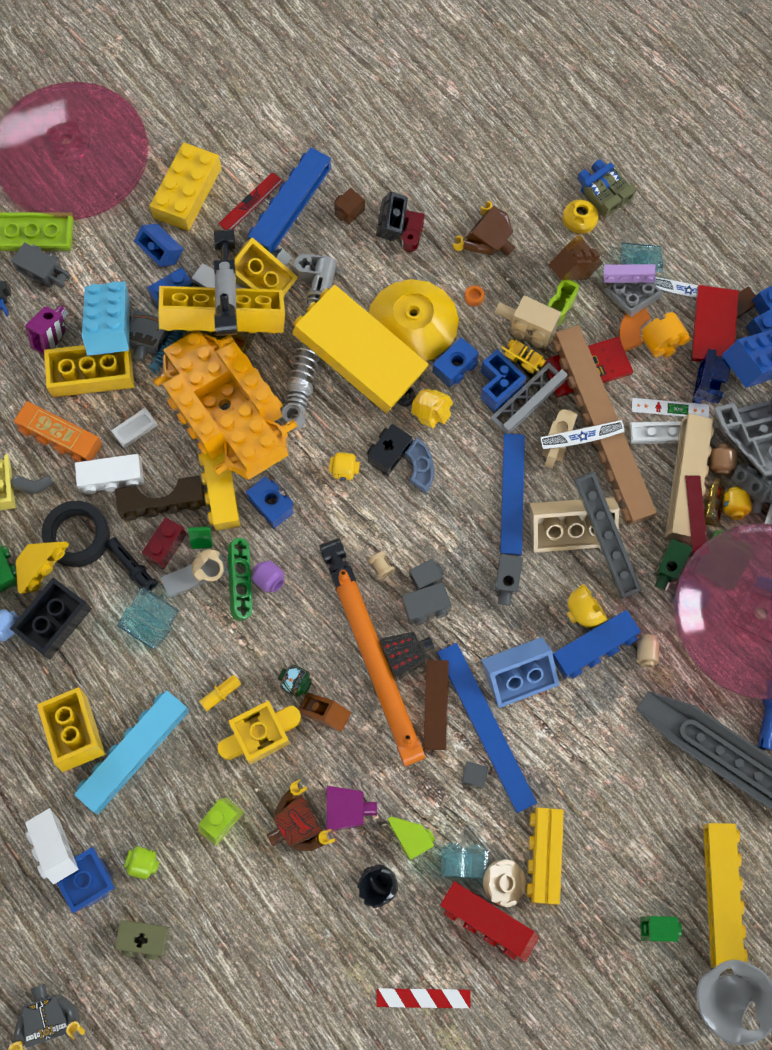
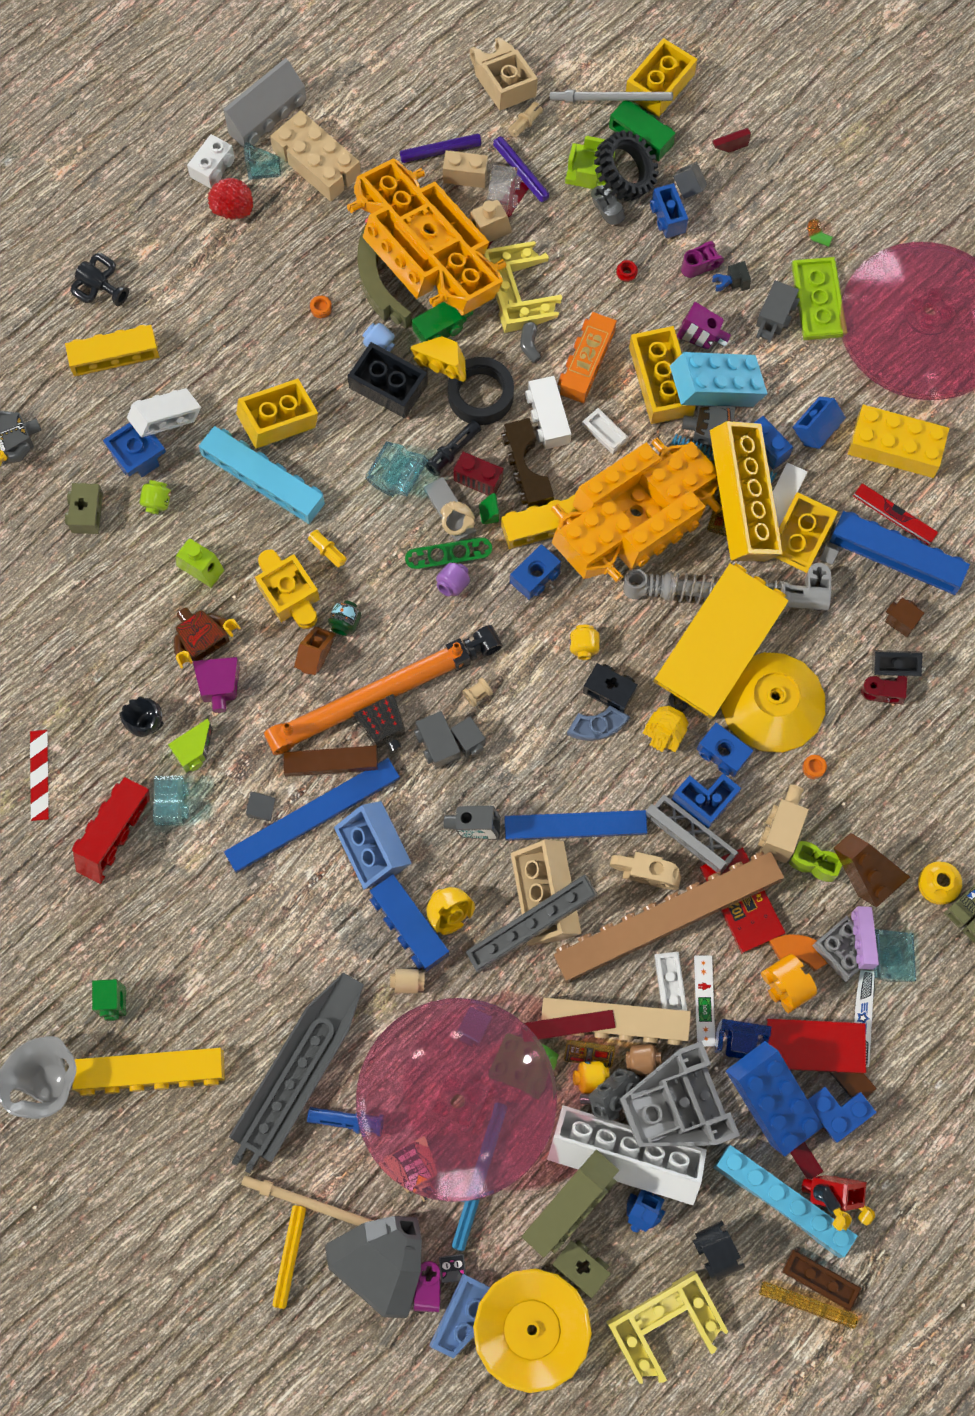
camera: 85 degrees right, 0 degrees up
(225, 284) = (782, 488): black piece -> none
(488, 234) = (895, 774): reddish brown torso -> none
(504, 883) = (150, 841): tan tile -> none
(513, 355) = (739, 815): yellow hinge -> none
(546, 856) = (180, 882): yellow brick -> none
(582, 435) = (648, 891): white sticker -> none
(675, 556) = (517, 1000): dark green torso -> none

